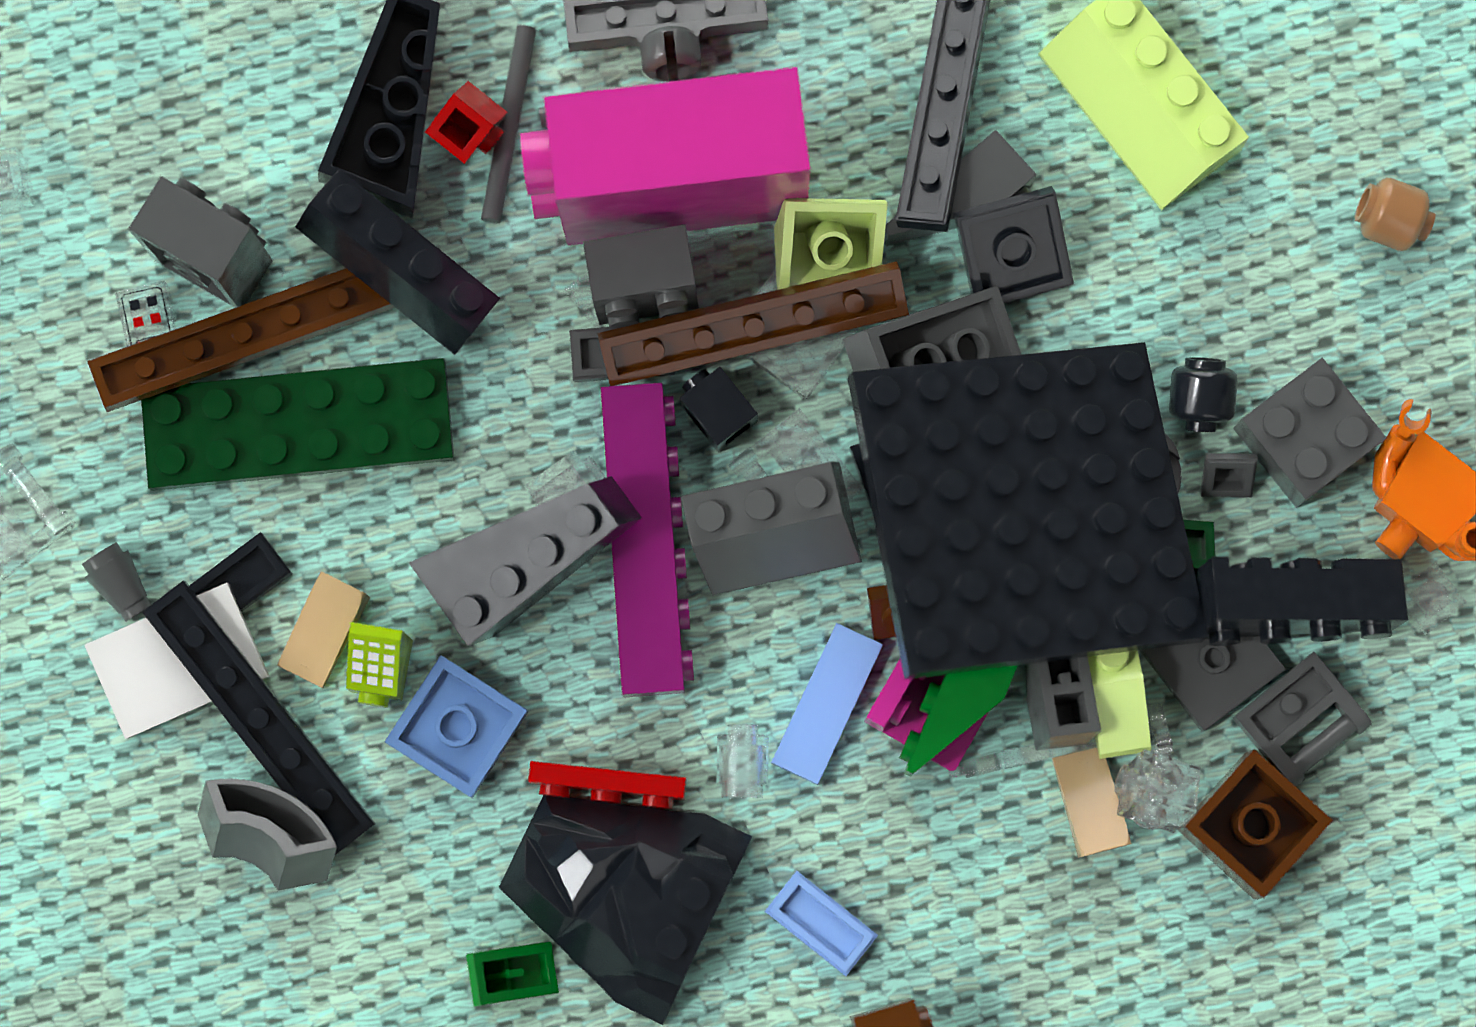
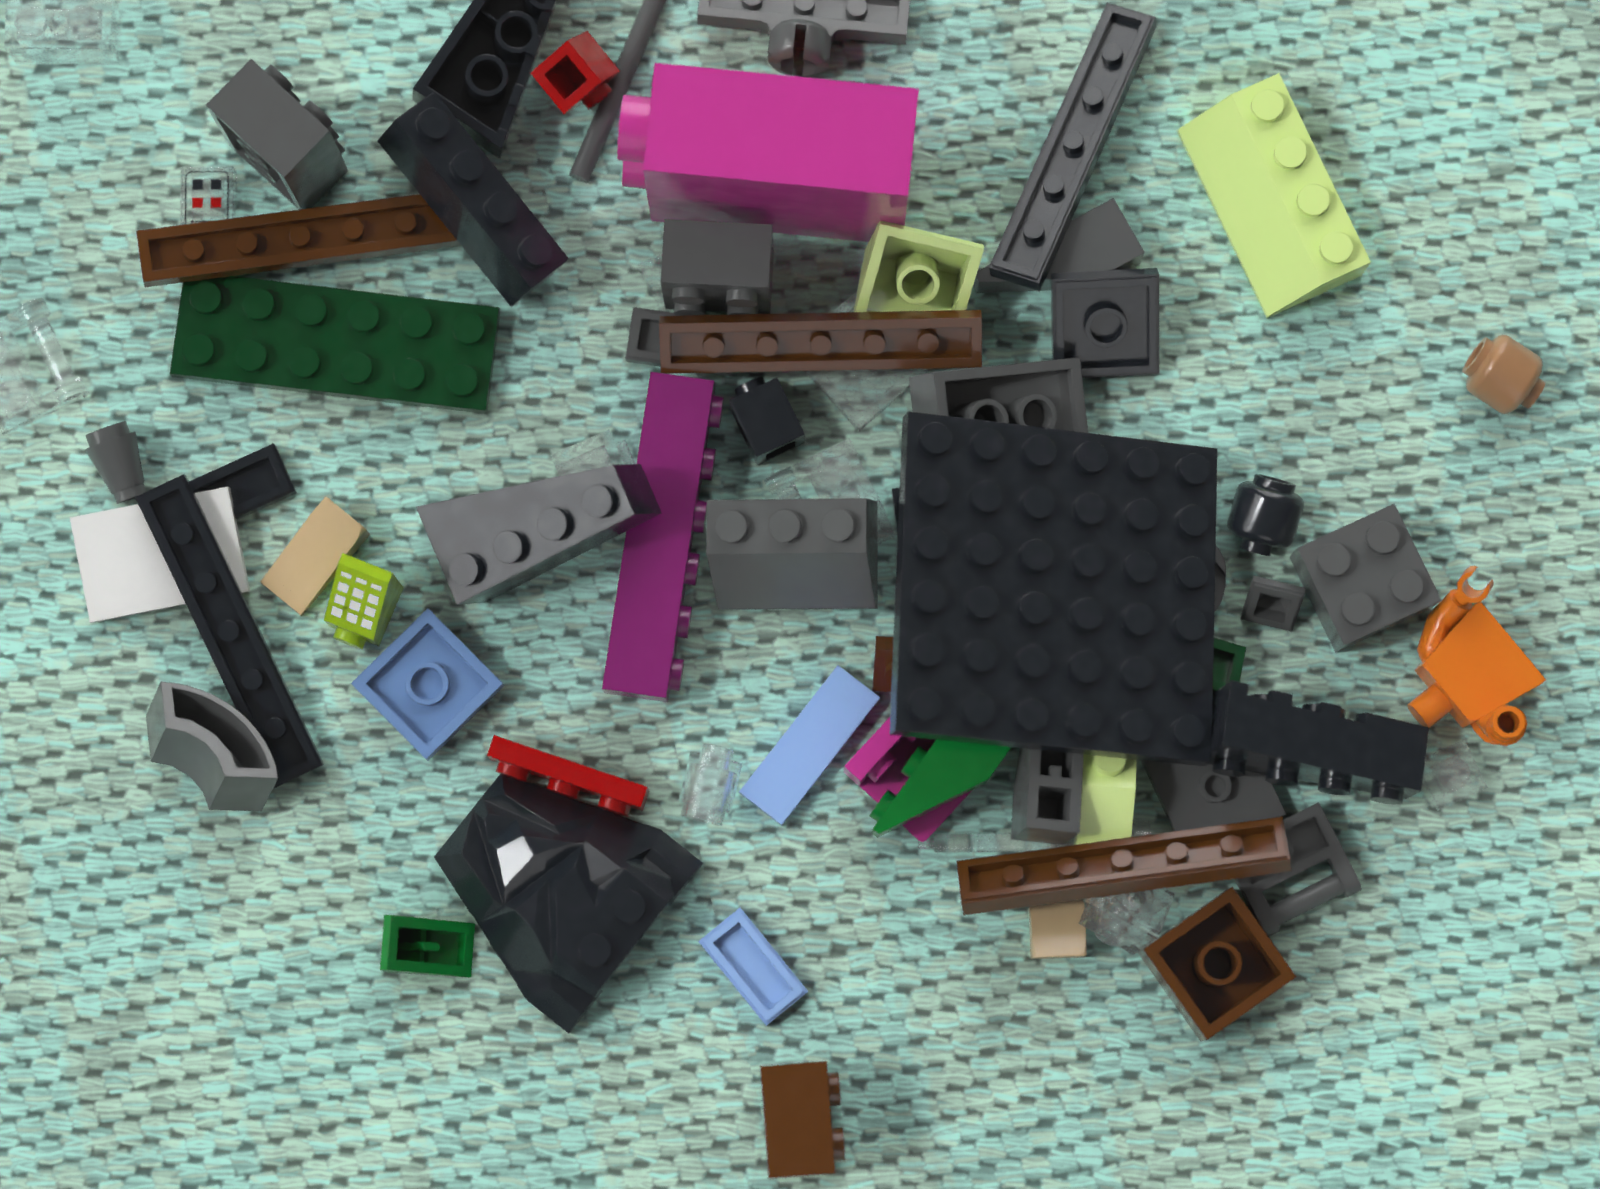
camera: 10 degrees right, 0 degrees up
(1148, 752) = (1123, 866): none -> reddish brown tile

